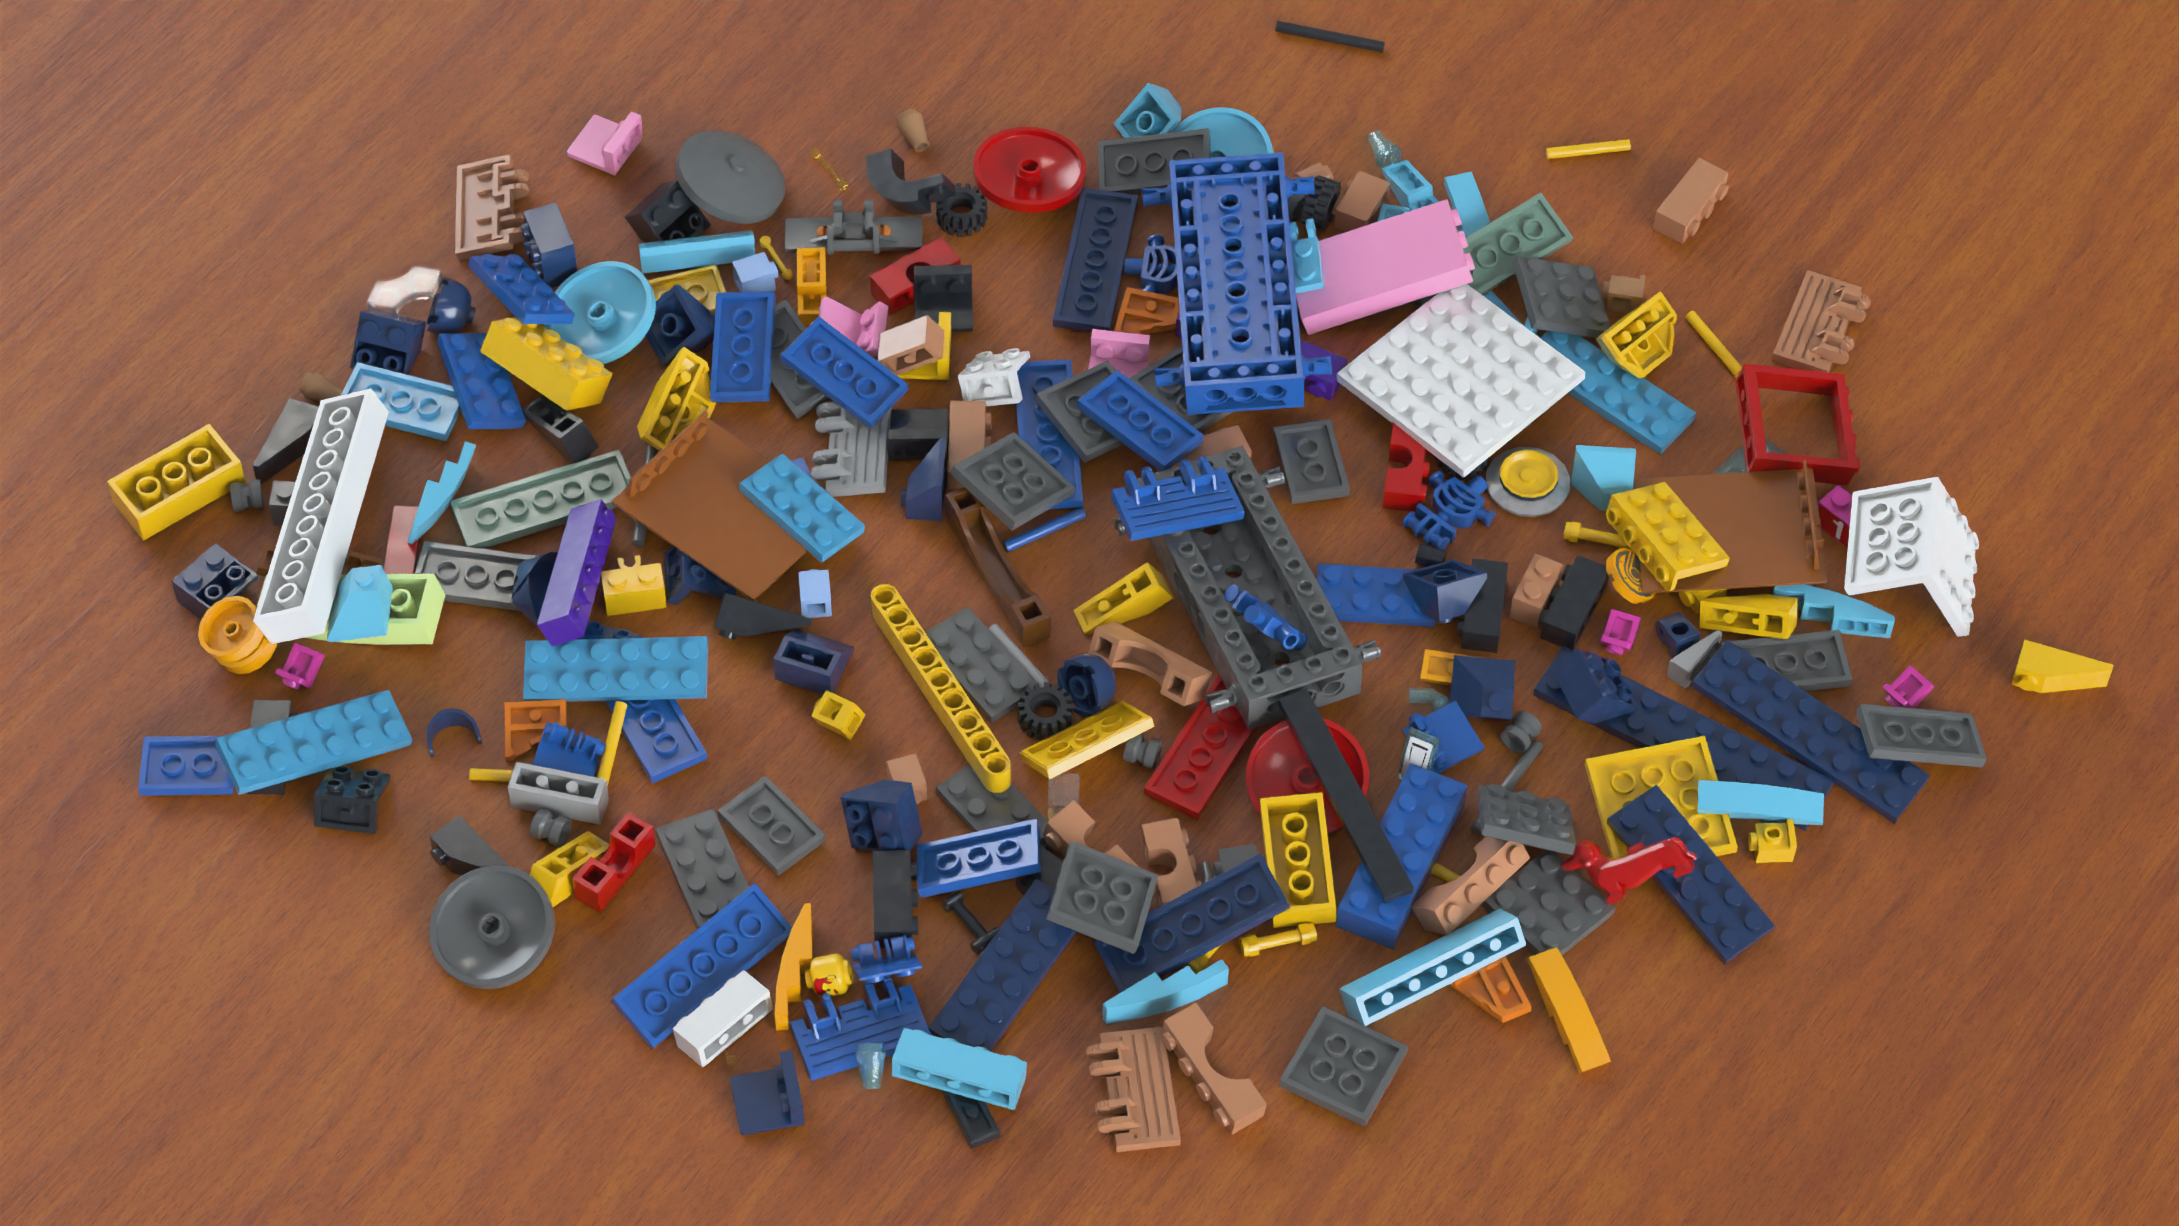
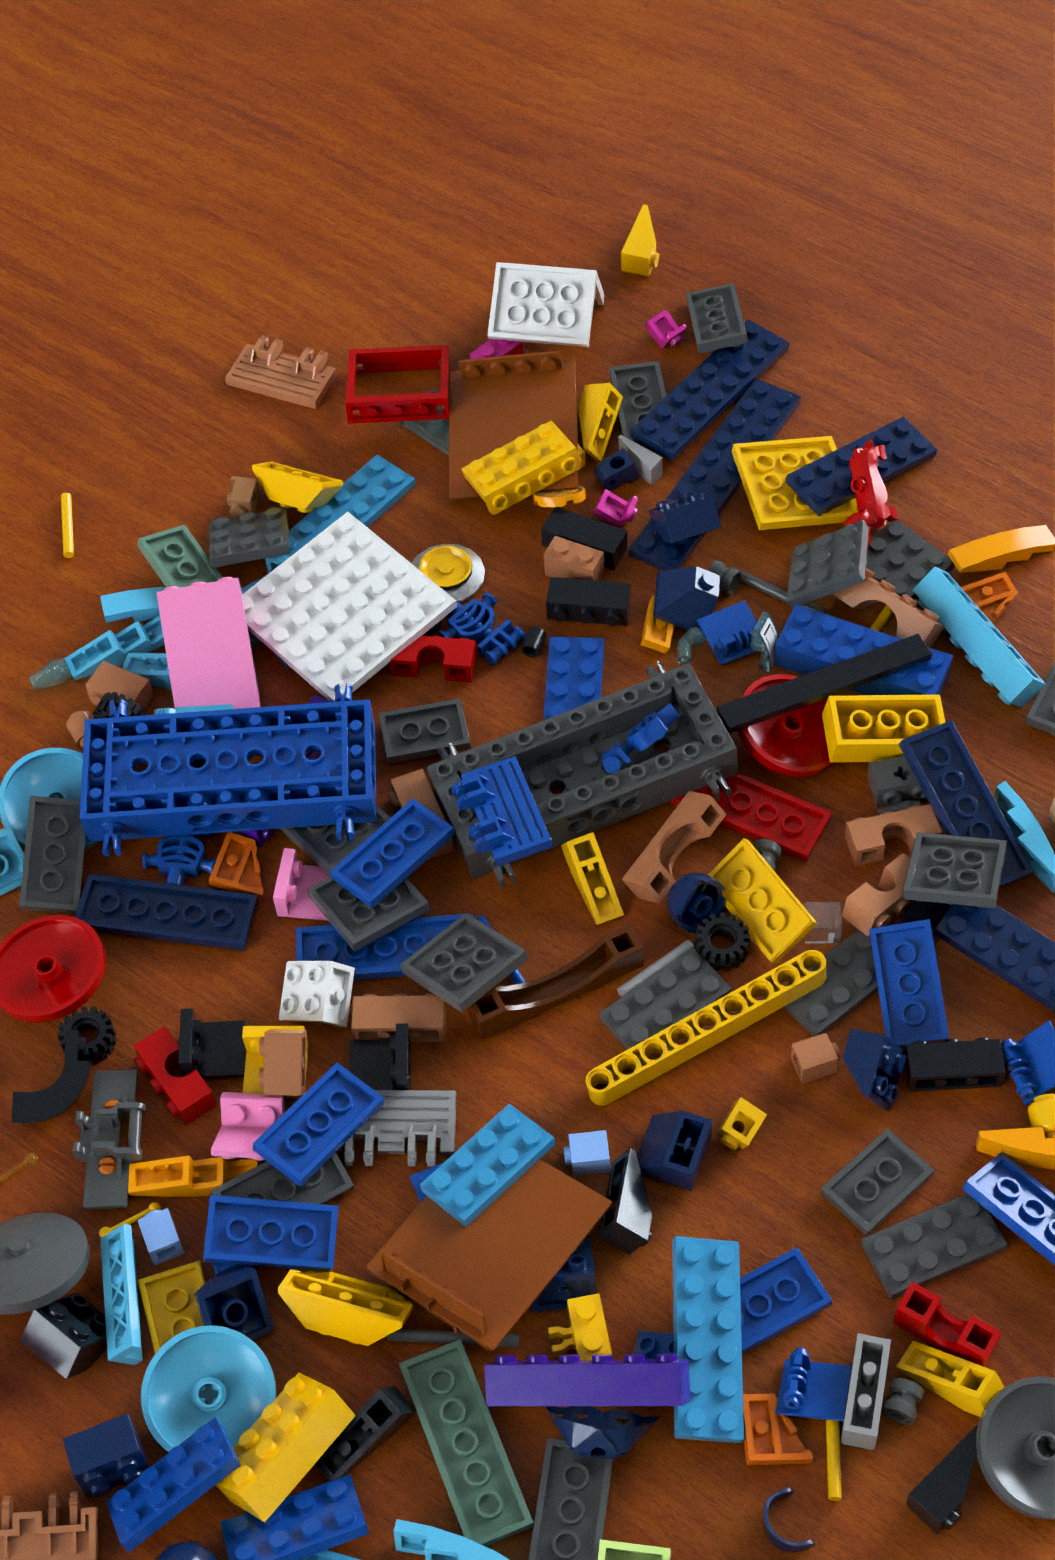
camera: 85 degrees left, 0 degrees up
(612, 741) = (791, 1343): yellow bar -> none
(927, 486) = (455, 1044): dark blue slope -> none
(955, 903) = (981, 989): black piece -> none
(1444, 589) = (579, 620): dark blue slope -> none
(1574, 531) = (505, 538): yellow bar -> none
(1602, 472) = (456, 508): medium azure slope -> none
(1691, 201) = (141, 450): nougat brick -> none
(1714, 343) = (299, 442): yellow bar -> none
(1760, 802) = (792, 416): medium azure slope -> none
(1773, 842) = (820, 415): yellow brick -> none
(1842, 611) = (591, 363): medium azure slope -> none

